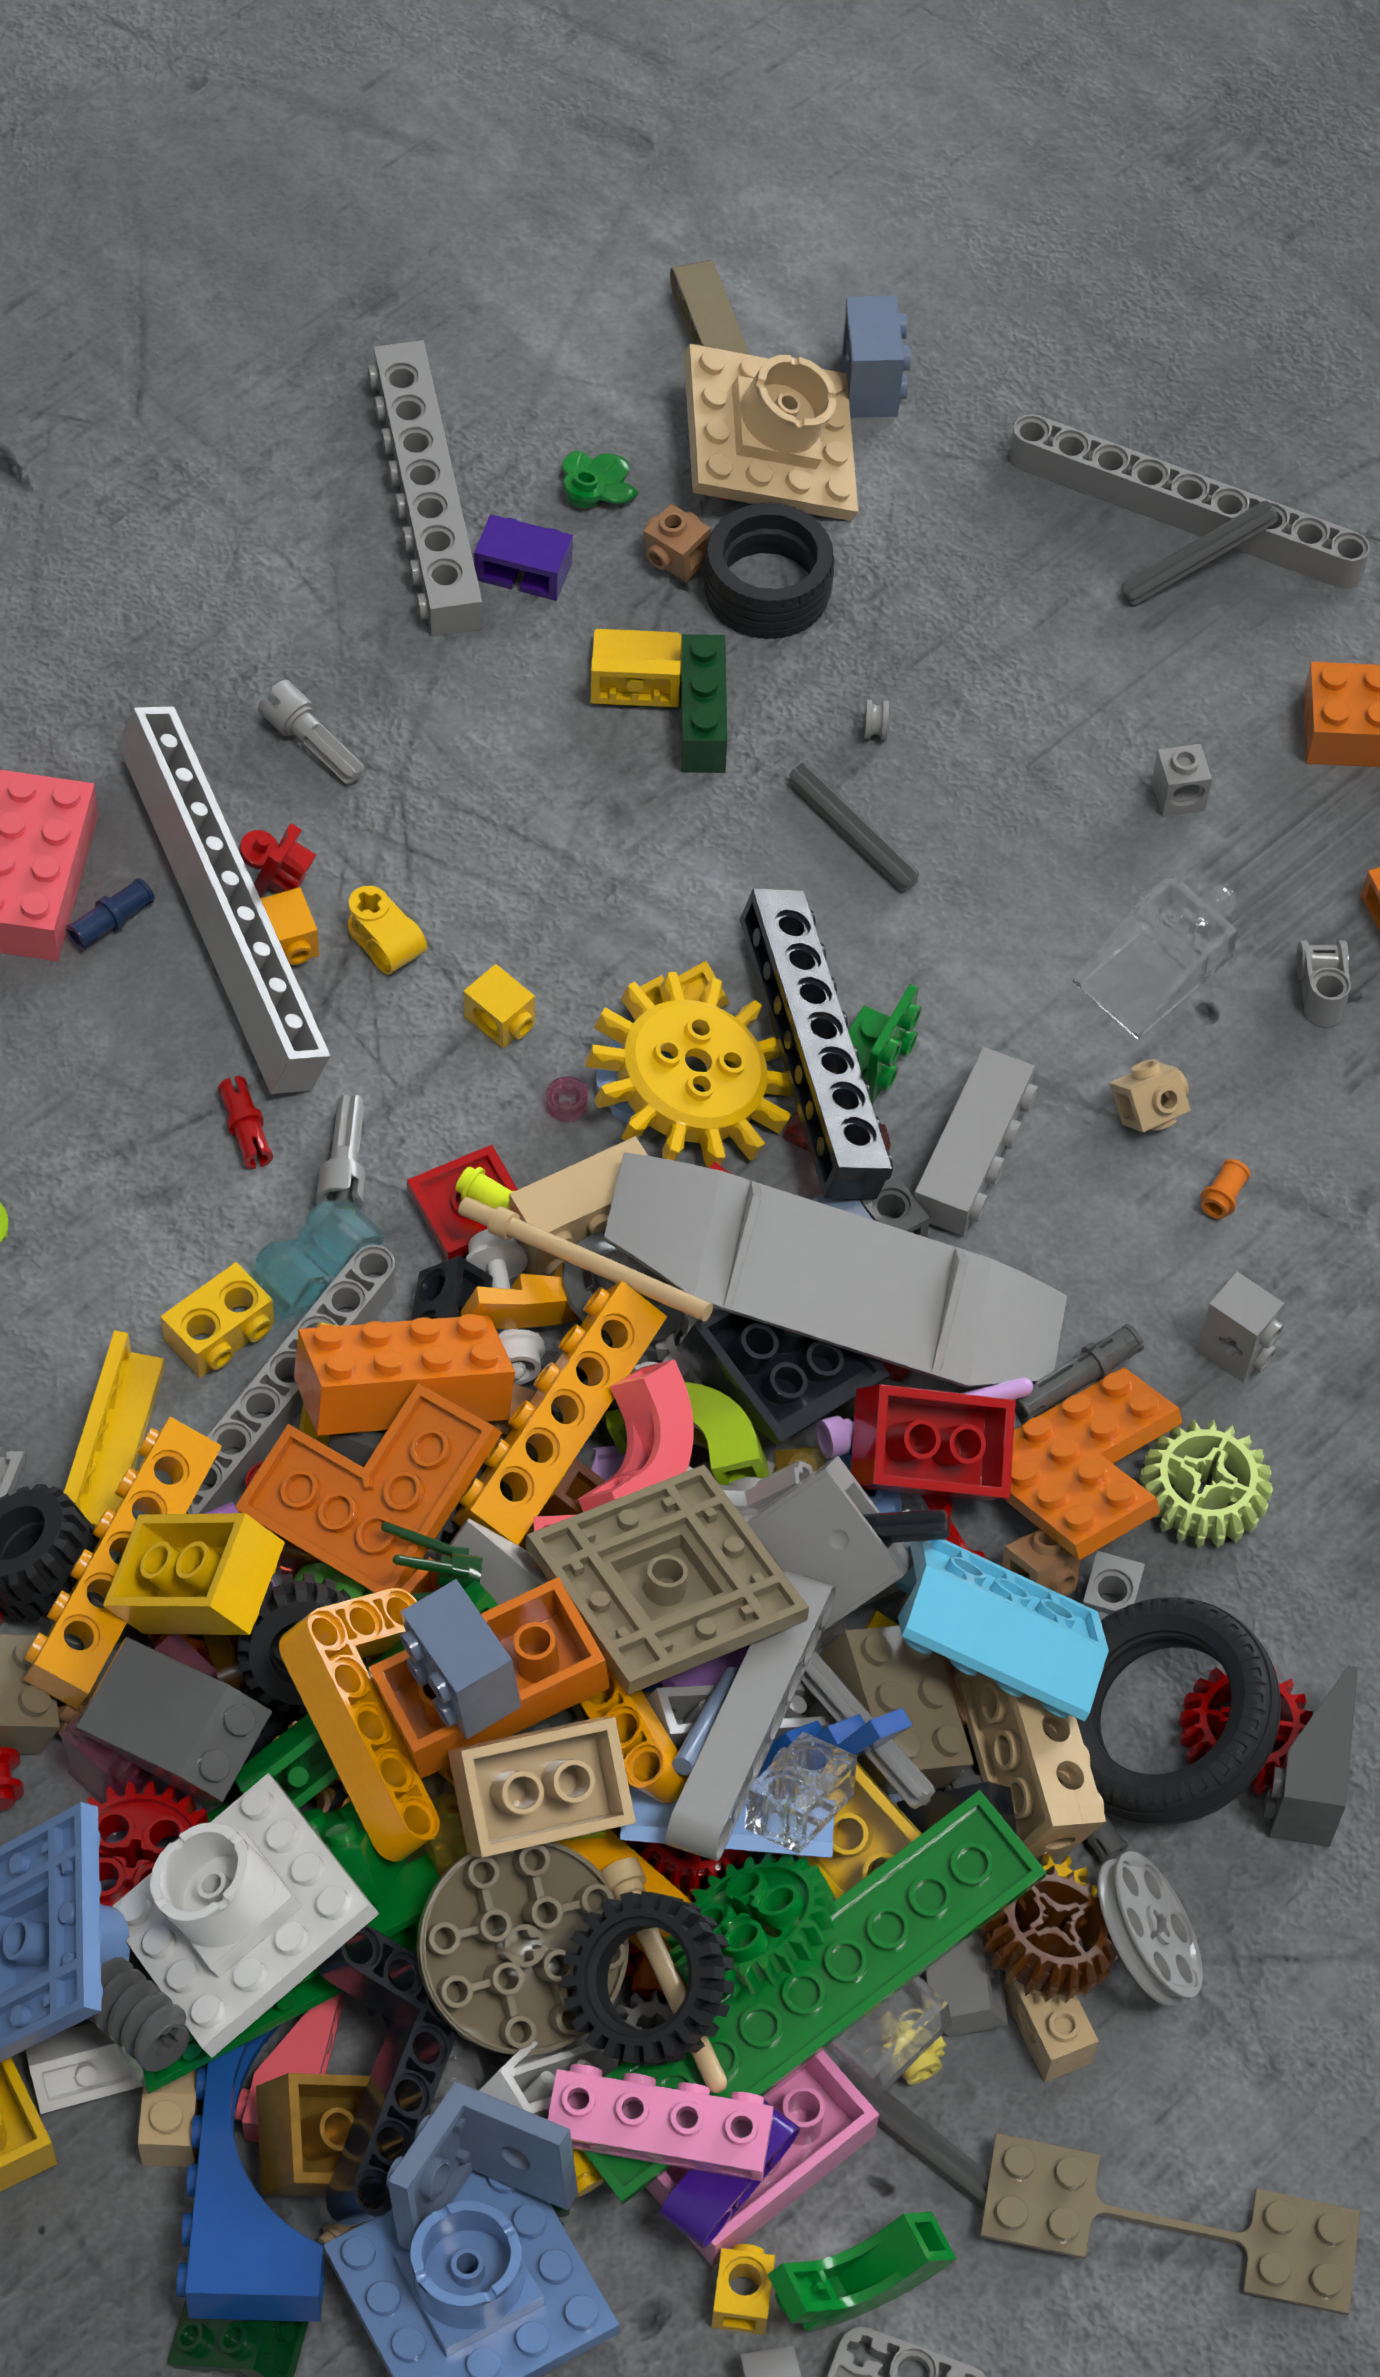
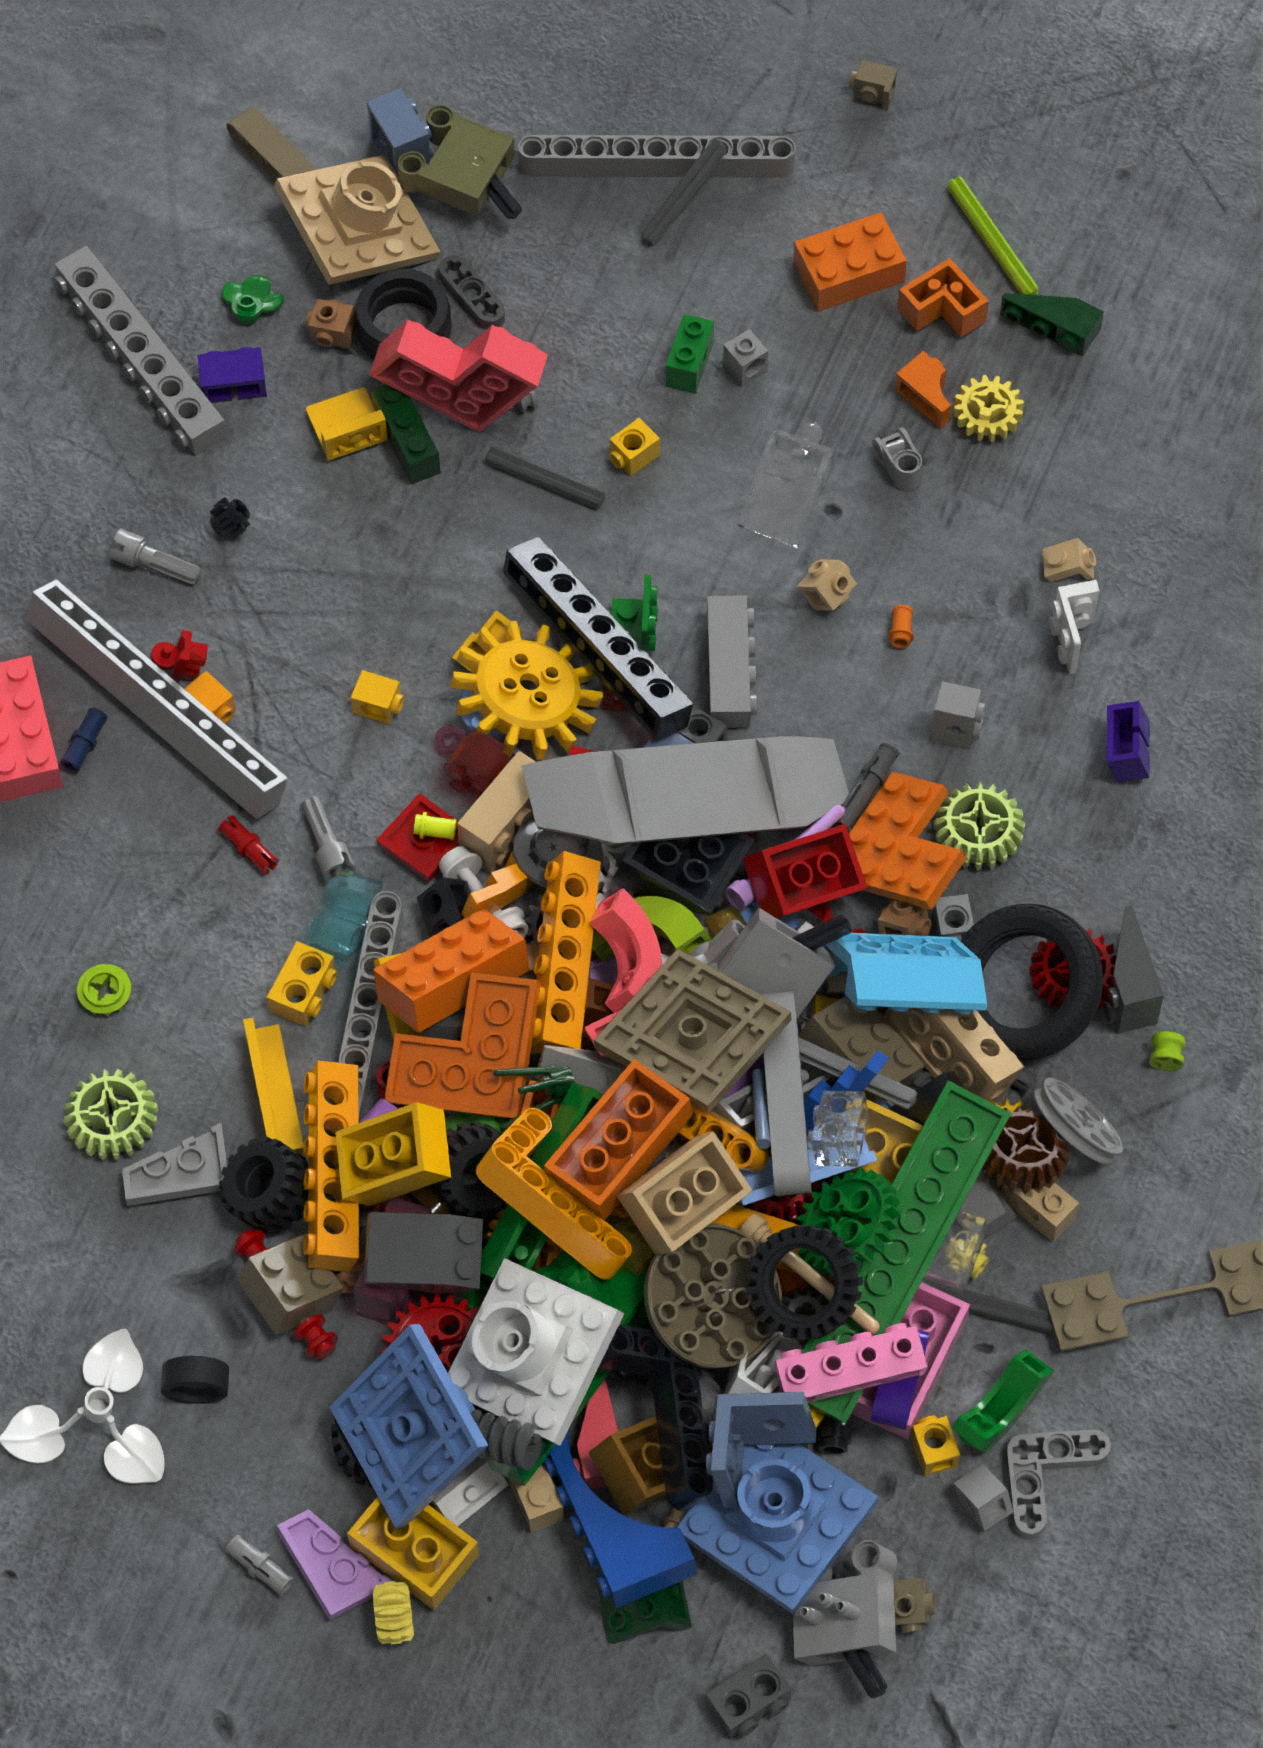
camera: 20 degrees left, 5 degrees up
(383, 929) = (274, 677): yellow piece -> none
(430, 720) = (229, 517): none -> black gear
(459, 1660) = (606, 1136): sand blue brick -> none
(508, 1225) = (467, 843): tan bar -> none
(576, 1130) = (475, 763): none -> clear red brick
(611, 2220) = (834, 1436): none -> black brick
(796, 665) = (466, 383): none -> coral brick
(869, 590) = (469, 279): none -> dark grey beam
(934, 418) = (464, 167): none -> olive piece
(984, 833) = (637, 436): none -> yellow brick
(1111, 747) = (689, 353): none -> green brick
(1324, 1888) = (1167, 1051): none -> lime wheel

